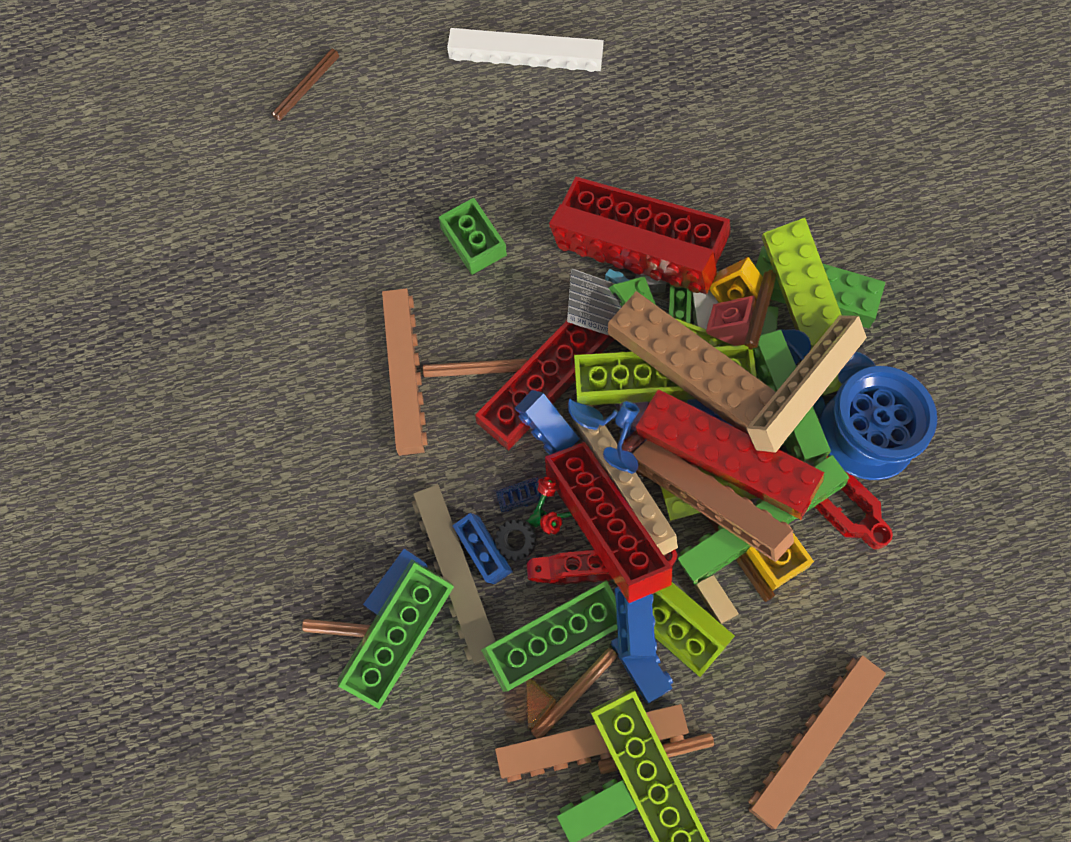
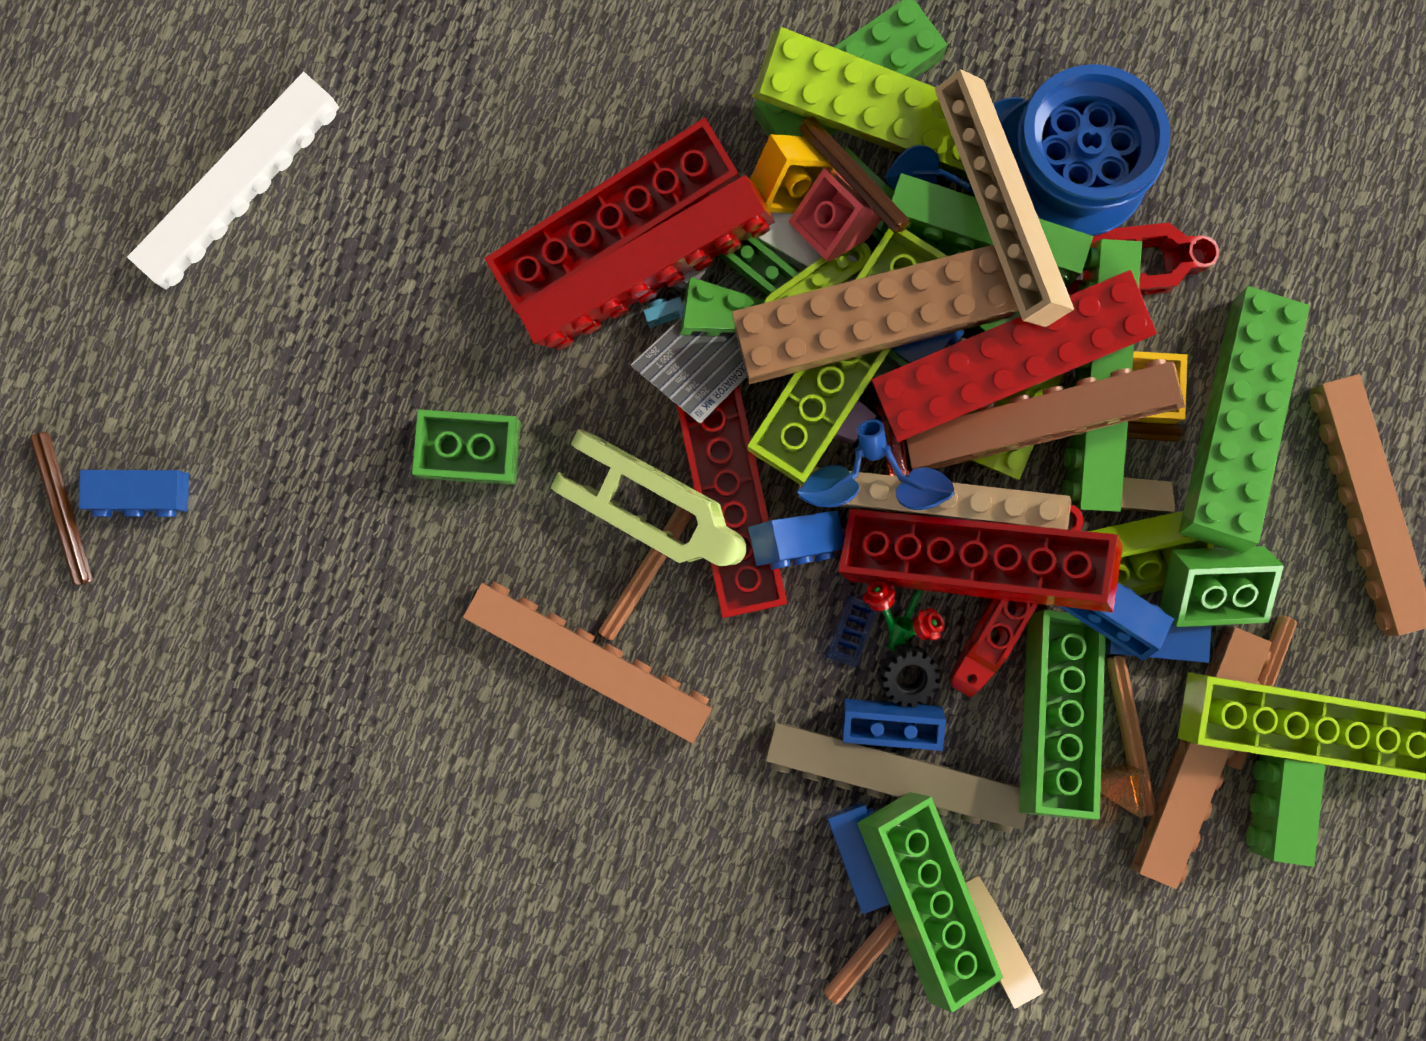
camera: 55 degrees left, 15 degrees up
(337, 108) = (134, 492): none -> blue brick
(397, 701) = (1017, 974): none -> tan slope
(511, 375) = (711, 537): none -> yellowish green piece
(697, 676) = (1220, 586): none -> bright green brick
(802, 620) = (1244, 420): none -> bright green brick

